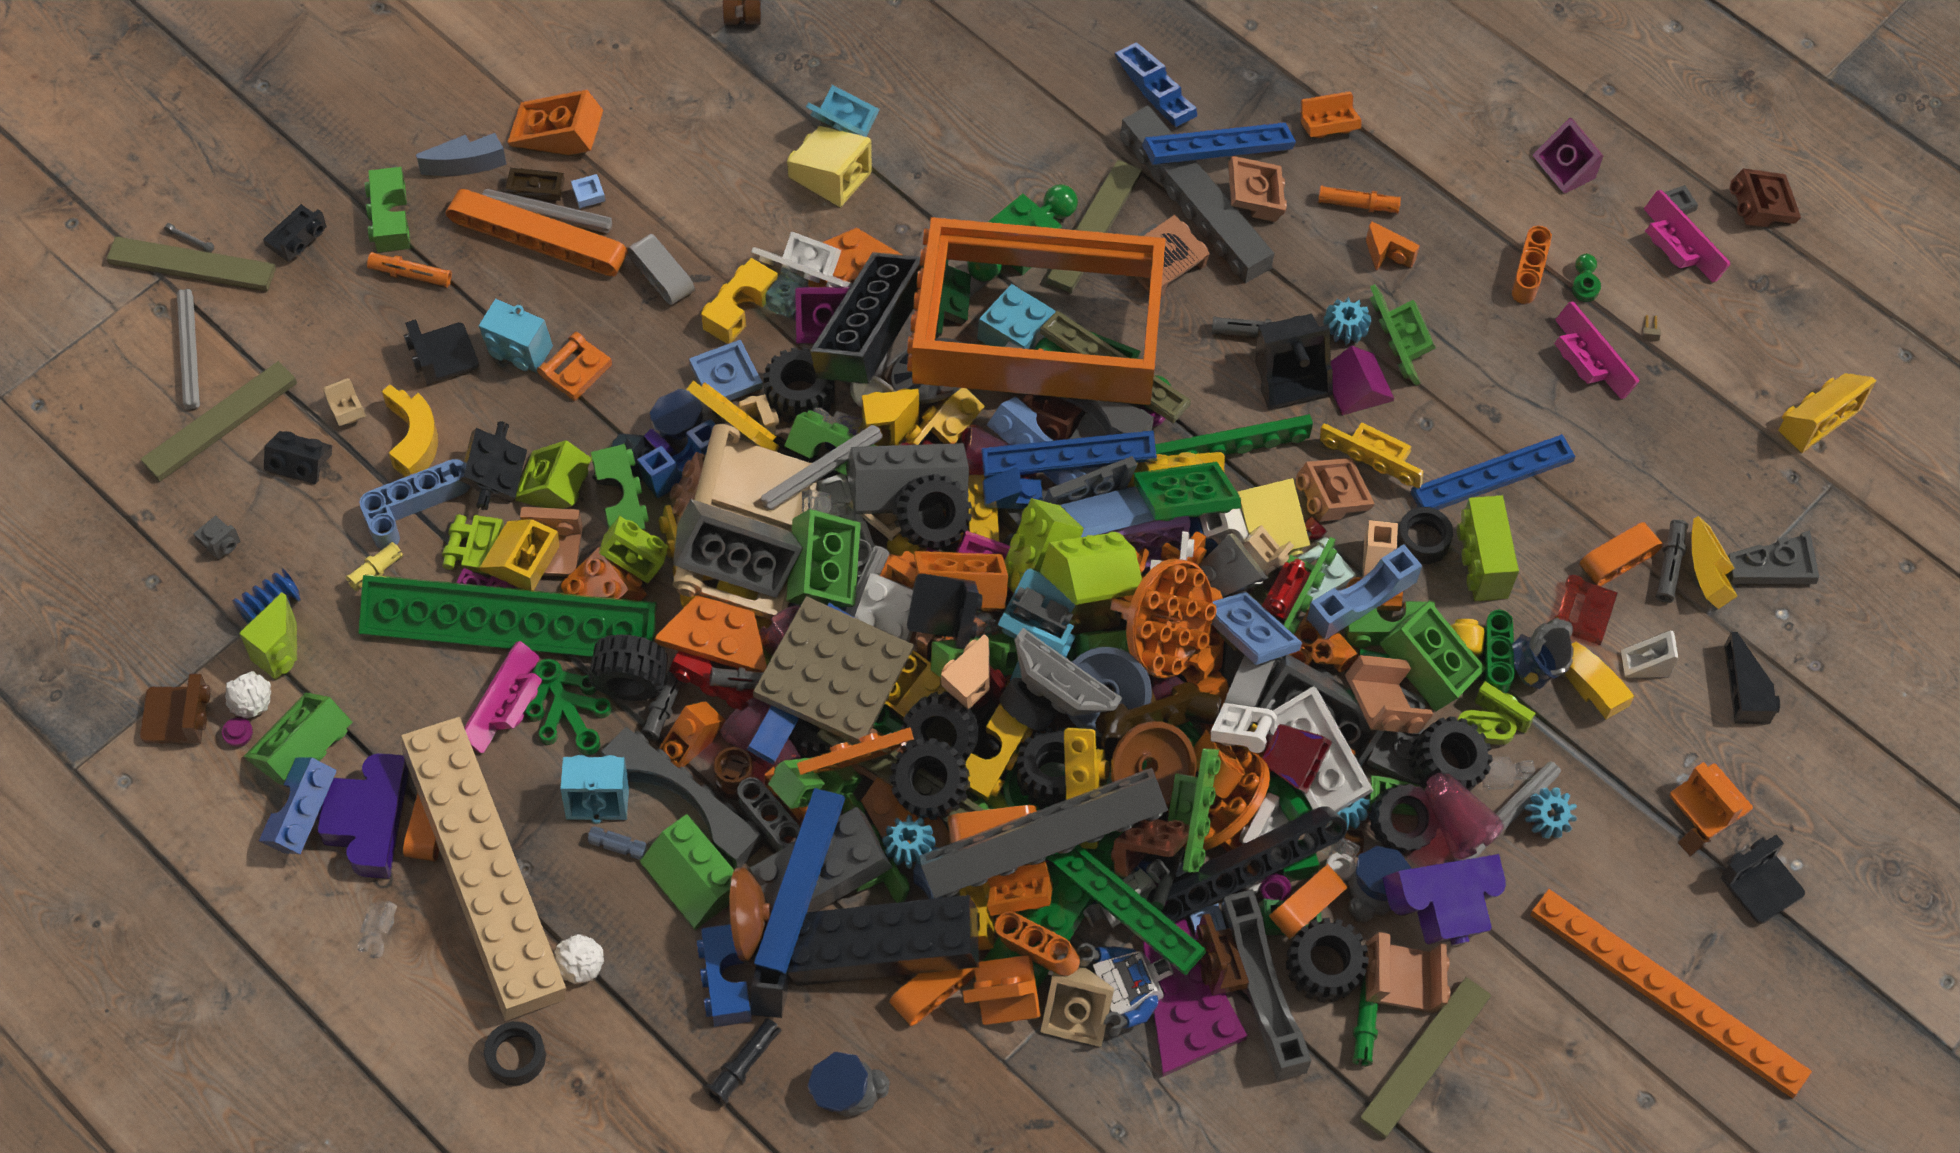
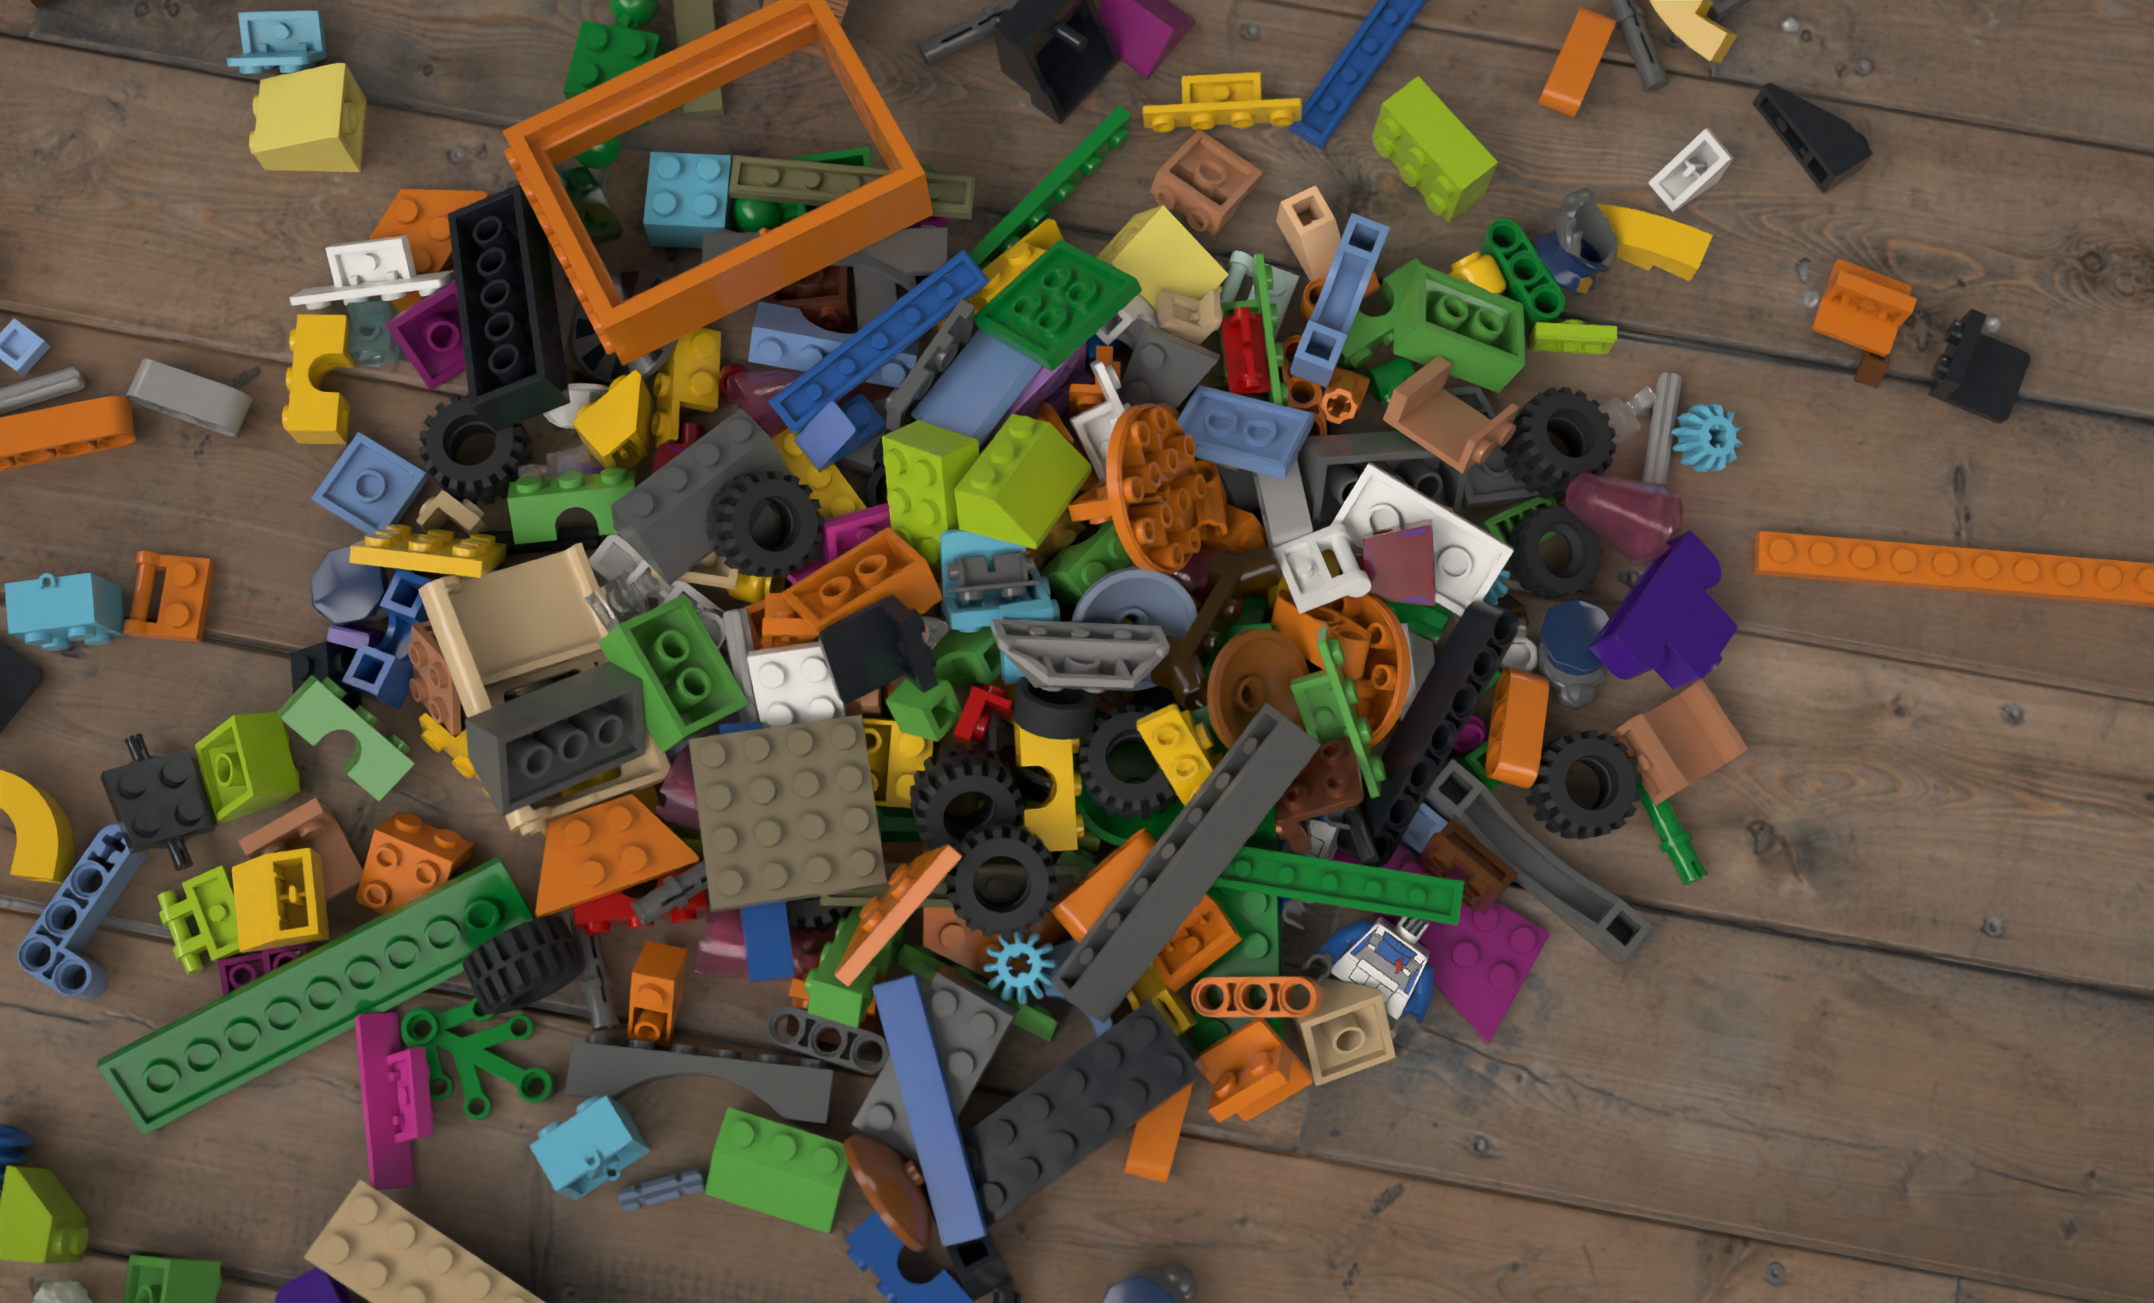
camera: 35 degrees left, 15 degrees up
(375, 565) = (99, 1031): light yellow pin -> none
(633, 549) = (420, 803): lime brick -> none
(730, 769) = (744, 1010): reddish brown wheel -> none
(819, 468) = (586, 552): light grey axle -> none
(969, 675) = (967, 717): light nougat slope -> none
(1315, 528) = (1216, 246): dark red hinge -> none
(1425, 1058) = (1756, 827): olive tile -> none
(1431, 517) = (1355, 150): black tyre -> none
(1488, 722) = (1562, 371): lime plate -> none
(1594, 611) = (1590, 154): clear red plate -> none

